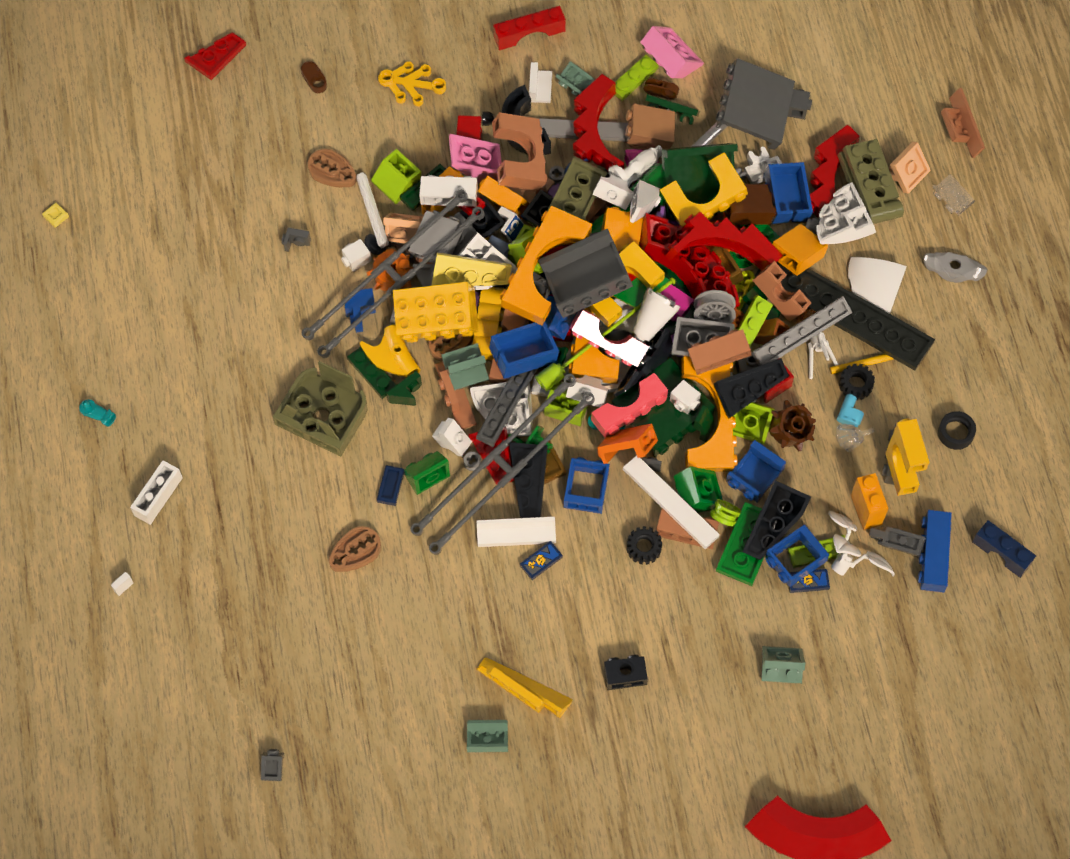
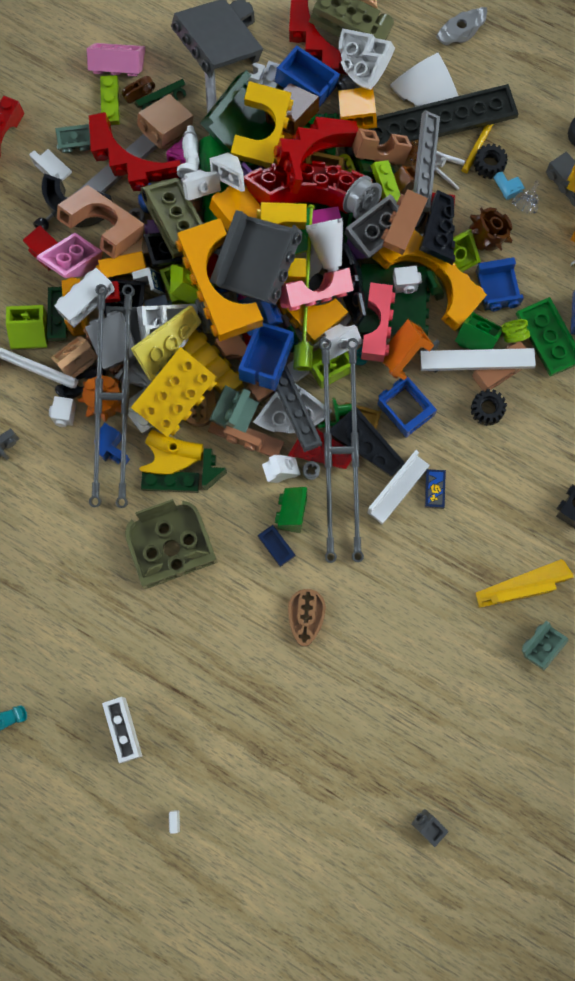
camera: 45 degrees left, 10 degrees up
(780, 512) = (552, 299): black wedge -> none

